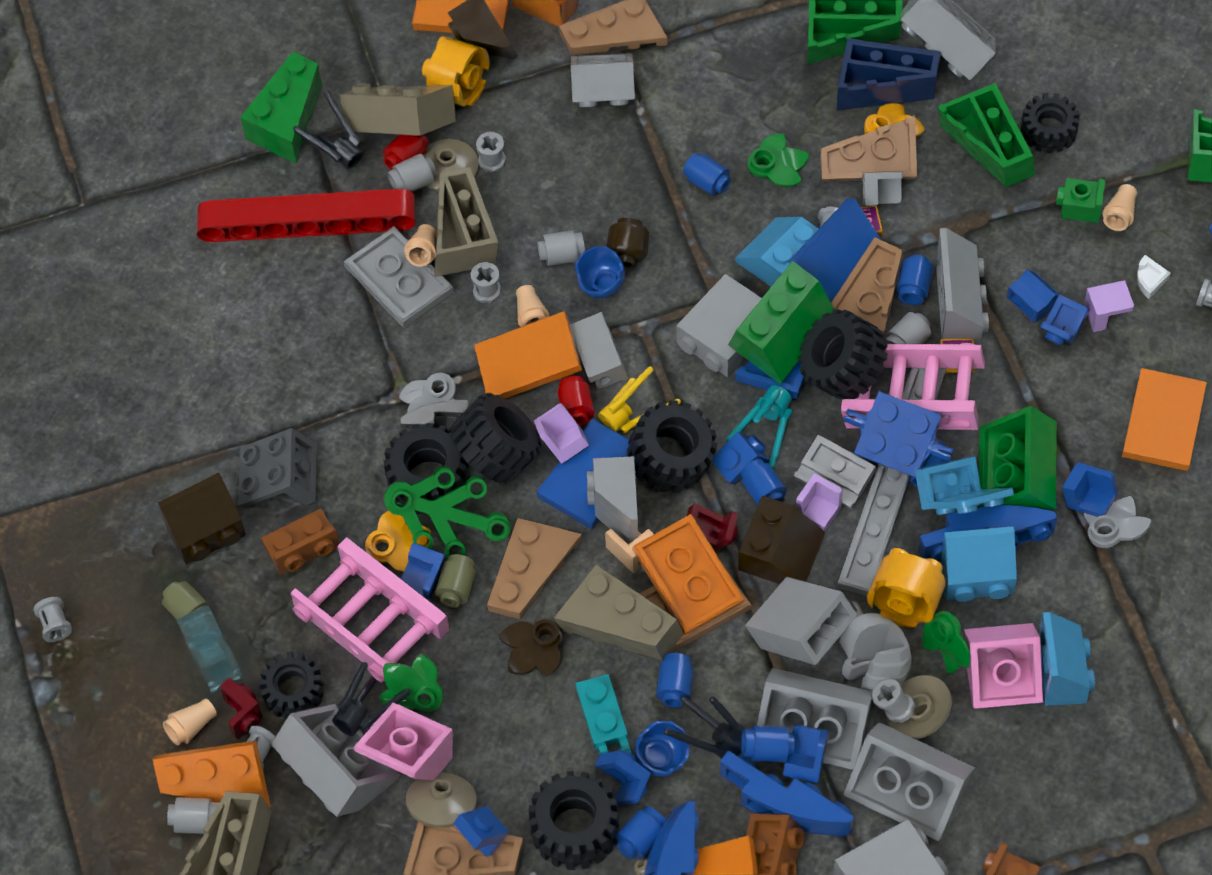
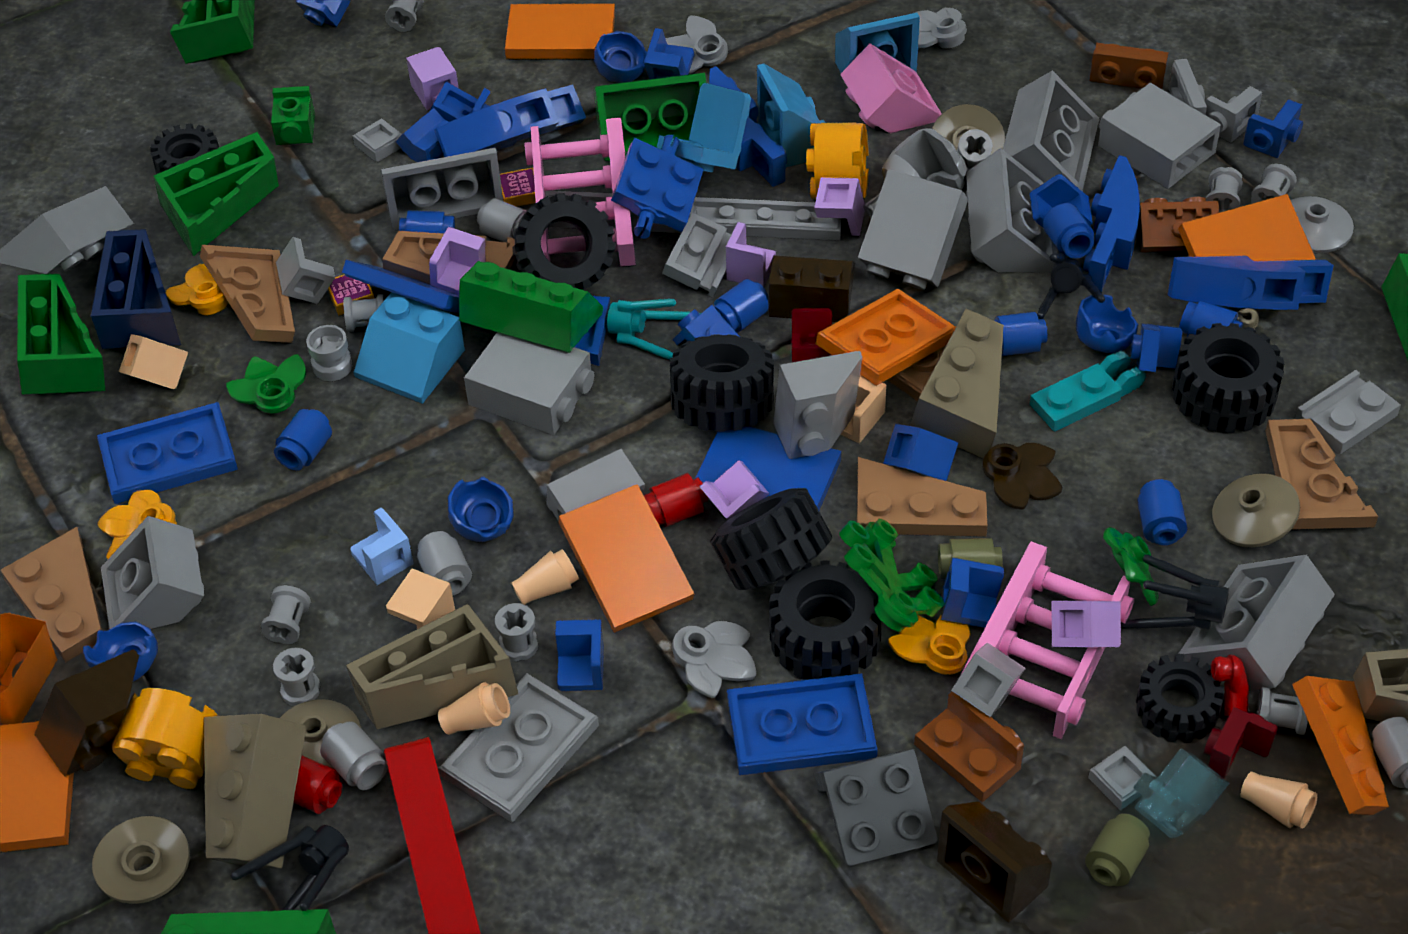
camera: 105 degrees left, 10 degrees down
(246, 632) = (1118, 775): none -> light grey tile
(275, 721) = (1236, 683): none -> red arm
(332, 549) = (988, 679): none -> light grey panel
(357, 444) = (801, 724): none -> blue tile
(357, 626) = (1086, 624): none -> lavender panel
(375, 51) = (133, 845): none -> dark tan dish
(408, 743) = (1223, 533): bright pink slope -> none
(426, 413) = (745, 632): slope -> none
(454, 322) = (580, 655): none -> blue panel
(465, 726) = (1161, 512): none -> blue brick
(481, 829) = (1296, 430): blue bracket -> none
(525, 227) = (421, 599): none -> light nougat panel
(541, 55) = (121, 640): none -> blue hair
(547, 151) = (285, 614): none -> light grey bush
(566, 573) = (920, 451): none -> blue panel
(590, 216) = (385, 551): none -> light blue panel
(617, 412) = (678, 454): yellow plant -> none
(628, 240) = (422, 495): dark brown head -> none
(661, 74) = (124, 519): none -> light orange plate
(728, 96) = (167, 452): none -> blue tile
(791, 197) = (329, 352): none -> light grey wheel
(816, 88) = (153, 361): none -> light nougat panel
(851, 283) = (454, 258): none -> lavender panel
(856, 579) = (841, 200): none -> lavender panel
(945, 634) = (888, 123): green plate -> none
(1026, 355) = (511, 121): none -> blue slope
(1046, 262) = (377, 140): none -> light grey tile
(1098, 732) = (943, 28): none -> light grey plate
(1101, 448) = (620, 57): none -> blue hair
(1121, 208) = (306, 78): light nougat cone -> none
(1151, 276) = (382, 63): white tile -> none

